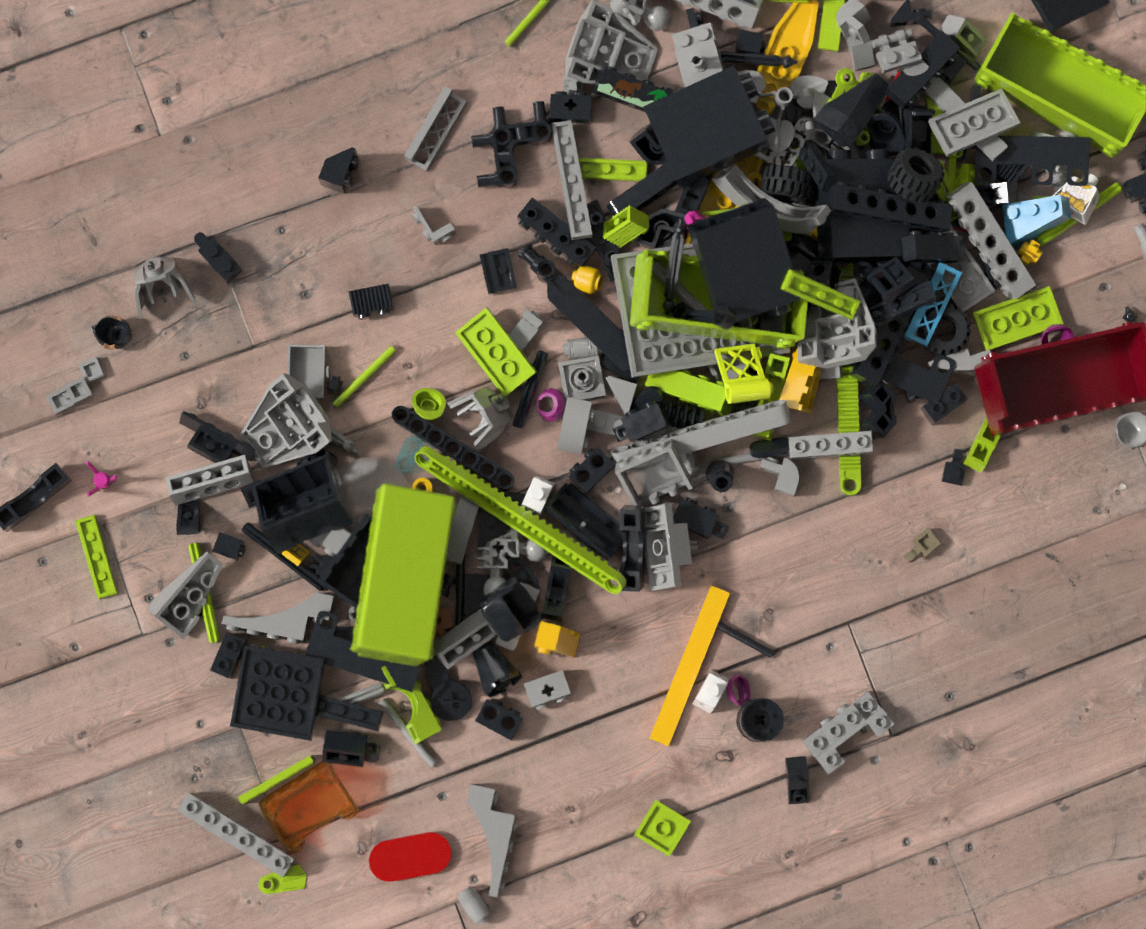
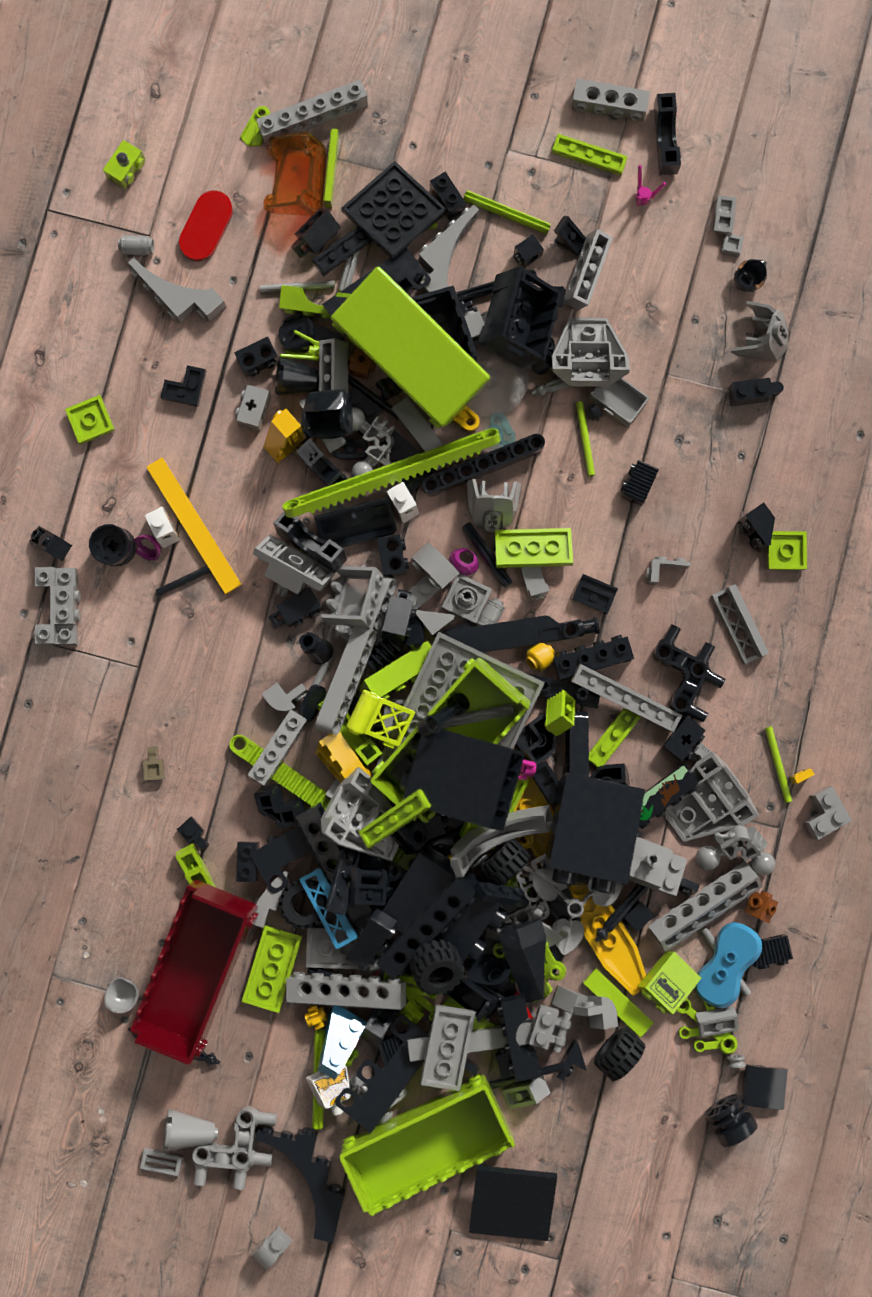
camera: 130 degrees right, 0 degrees up
(14, 547) = (603, 92): none -> light grey brick
(183, 598) = (512, 190): light grey wedge -> none
(212, 442) = (614, 291): black bracket -> none
(297, 554) = (485, 296): yellow tile -> none
(340, 131) = (787, 551): none -> lime plate
(428, 403) = (530, 469): lime piece -> none
(459, 671) = (313, 352): none -> lime plant
(573, 758) = (187, 392): none -> black plate
(674, 266) = (500, 721): black wheel -> none
(1066, 332) = (229, 995): magenta piece -> none

